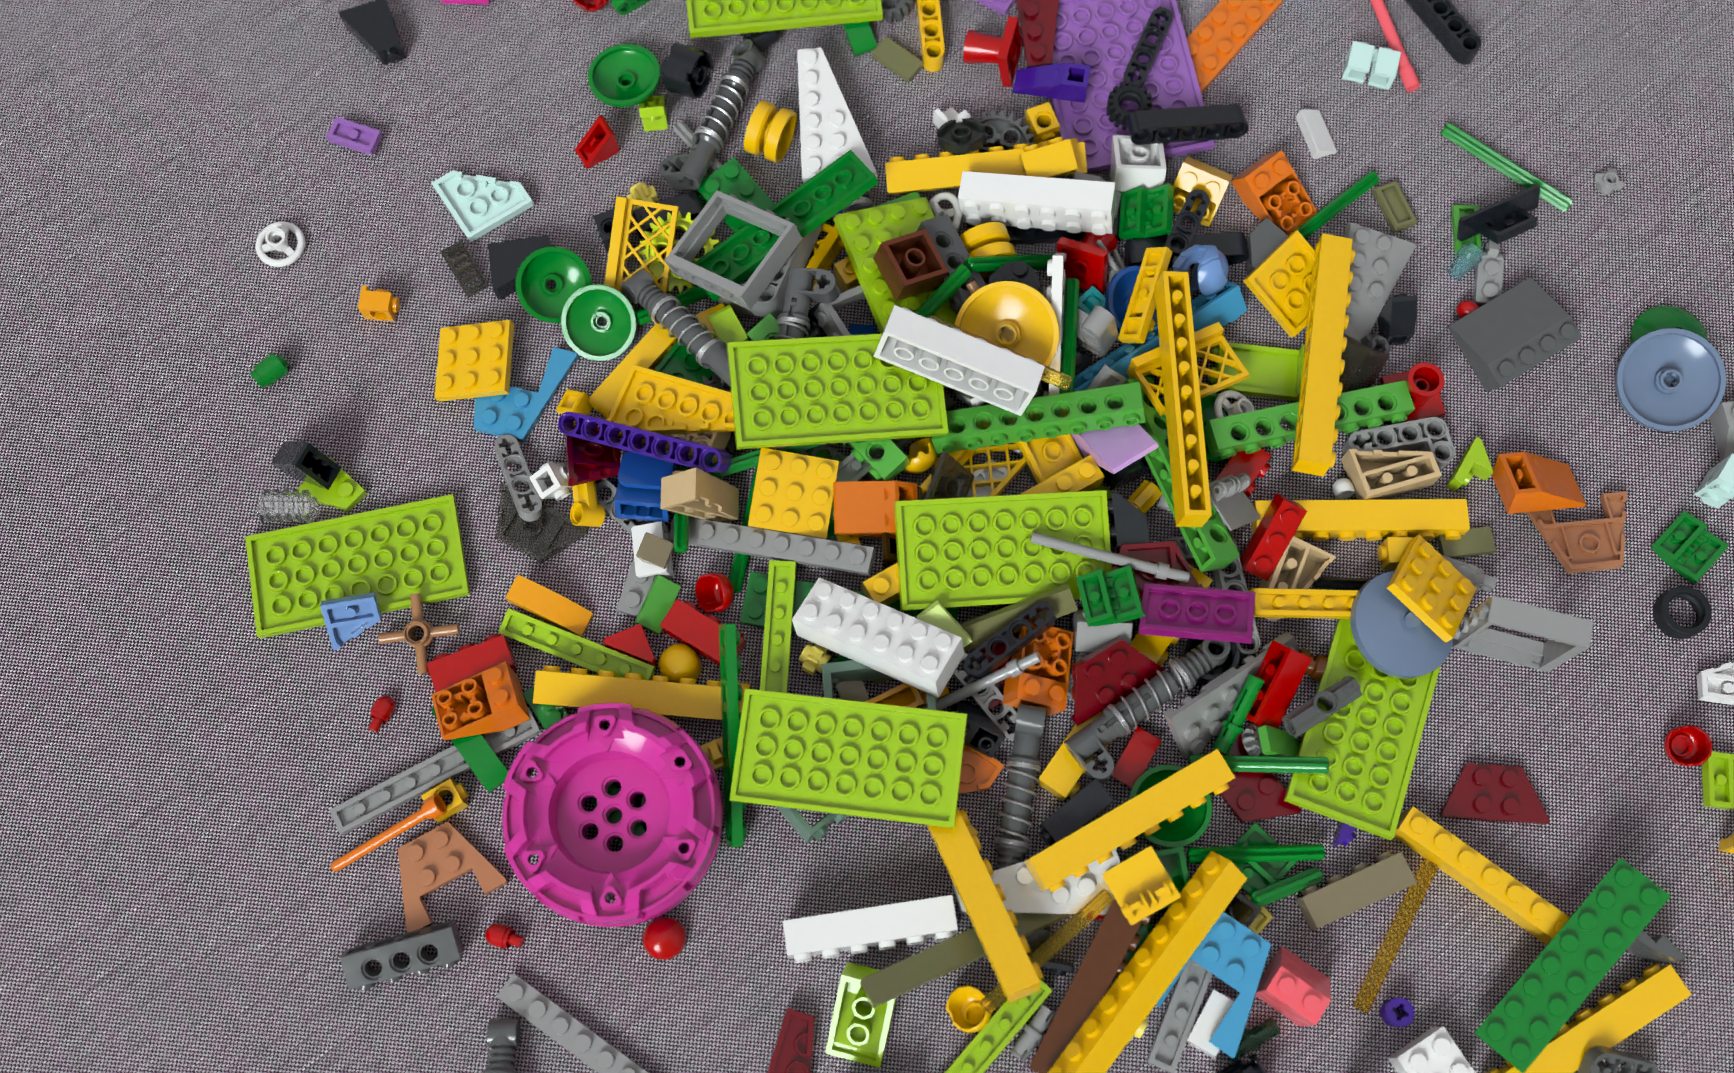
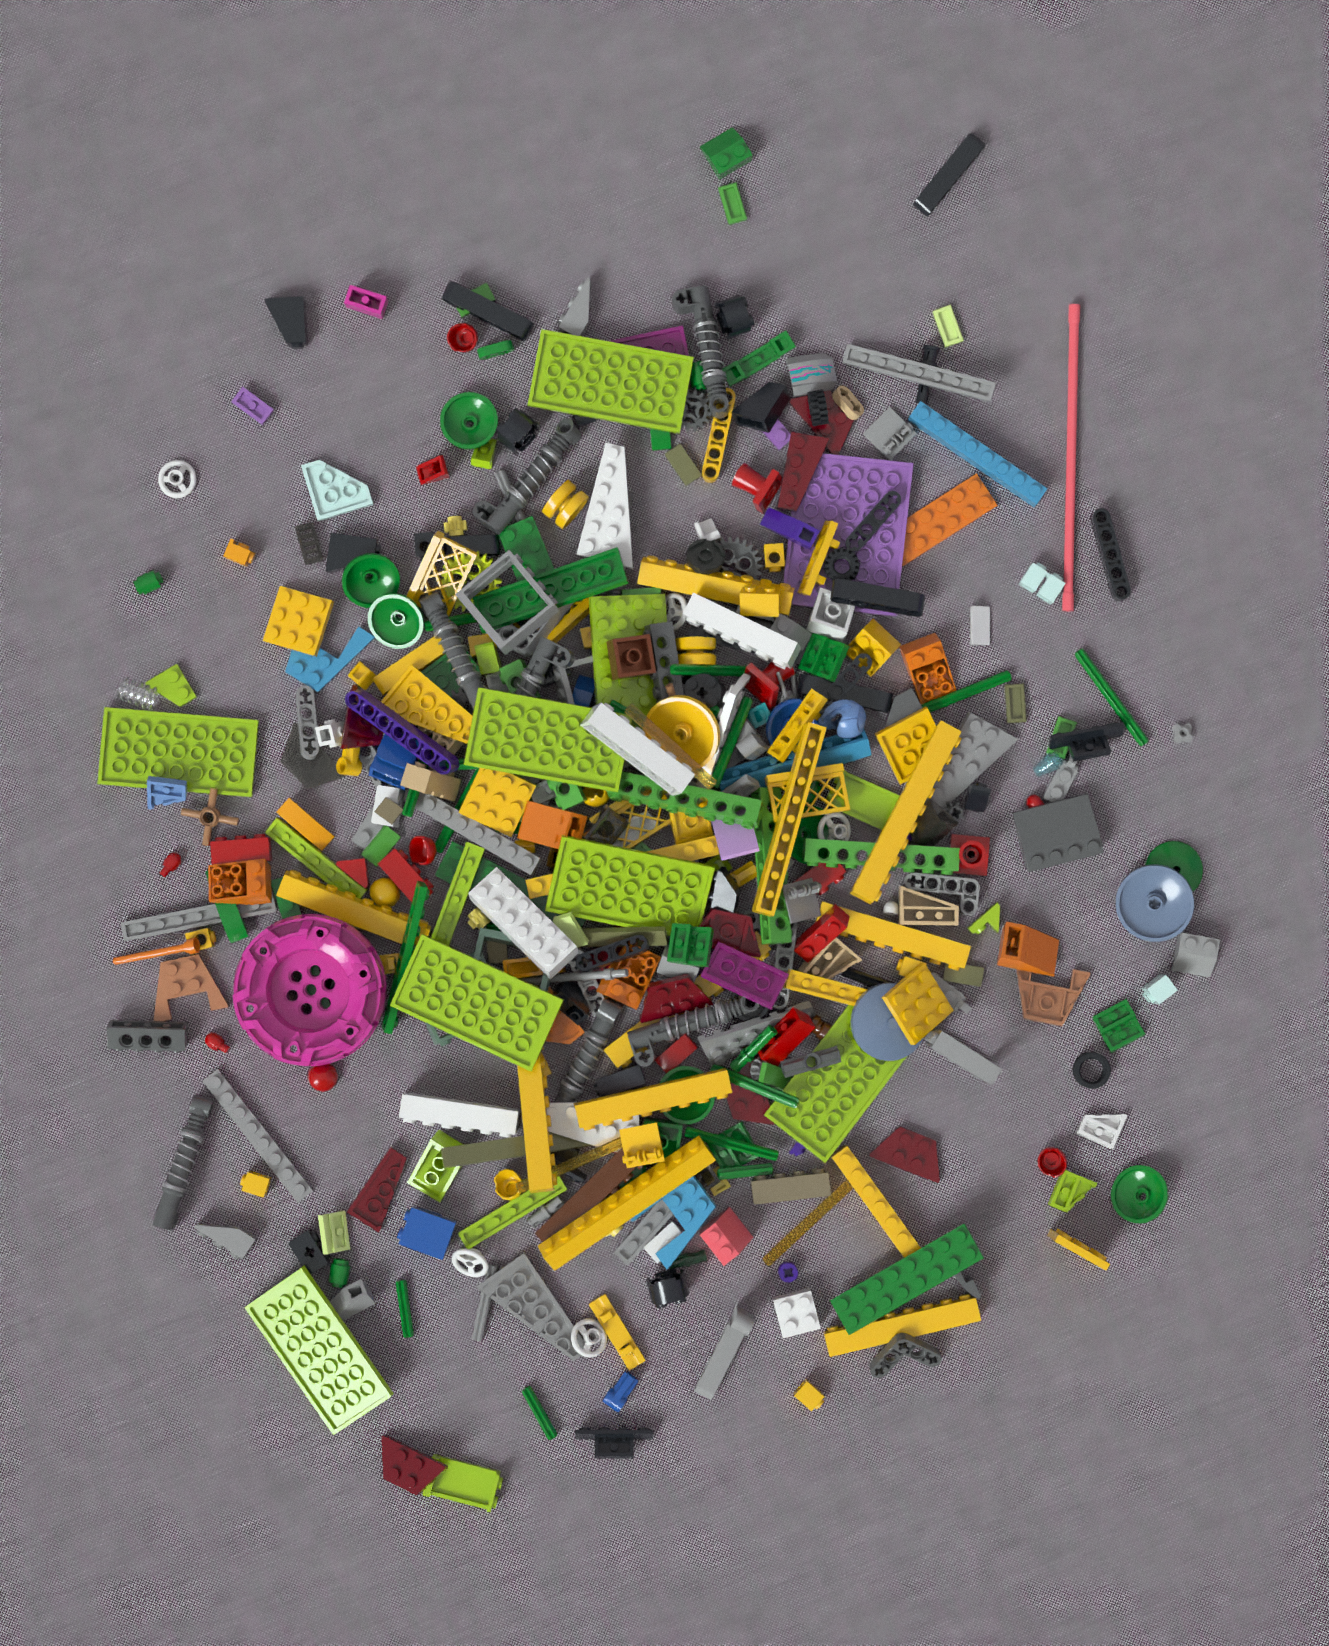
camera: 15 degrees right, 15 degrees up
(306, 463) = (158, 668): black slope -> none
(944, 291) = (645, 687): green axle -> none
(1098, 87) = (817, 558): none -> yellow hinge
(1160, 570) = (733, 935): light grey bar -> none

